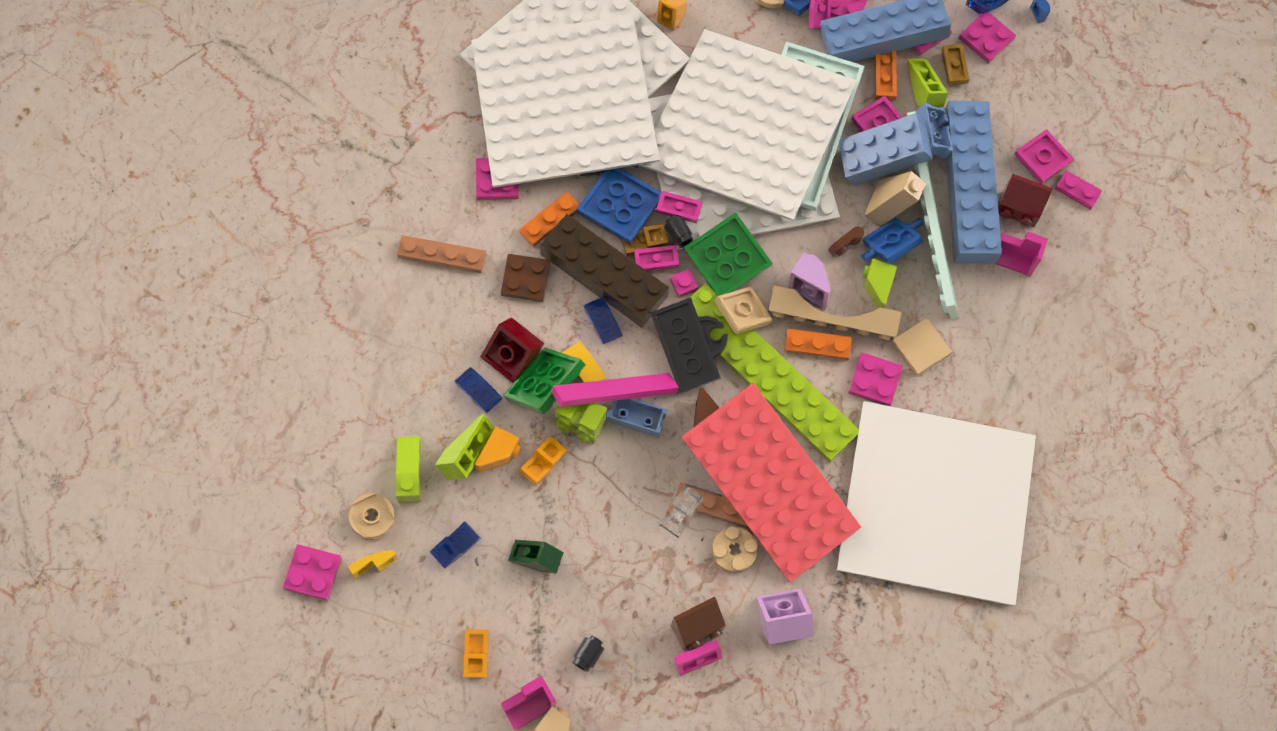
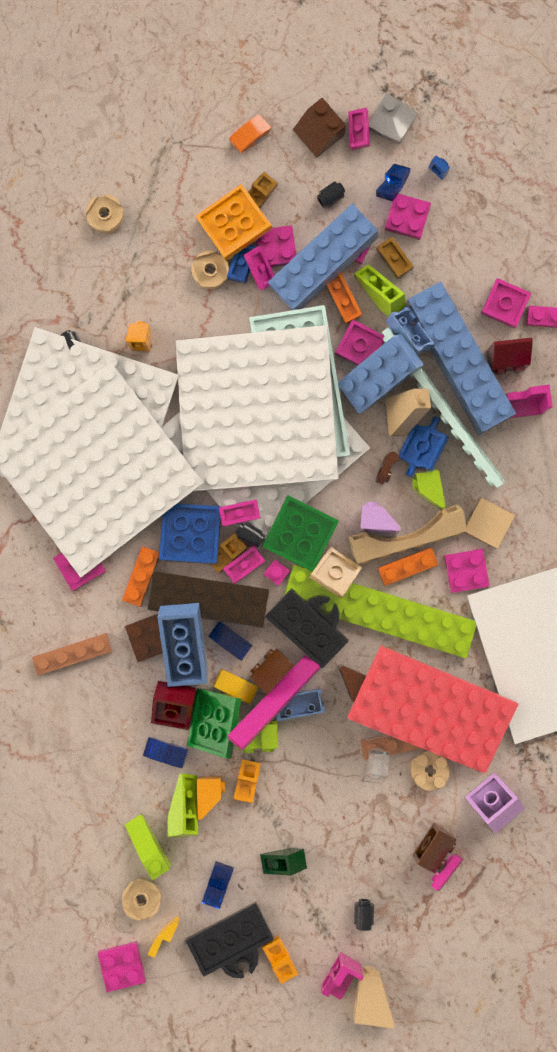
camera: 25 degrees left, 15 degrees up
(437, 607) = (231, 942): none -> black plate
(556, 291) = (183, 644): none -> medium blue brick
(629, 364) = (271, 670): none -> reddish brown slope

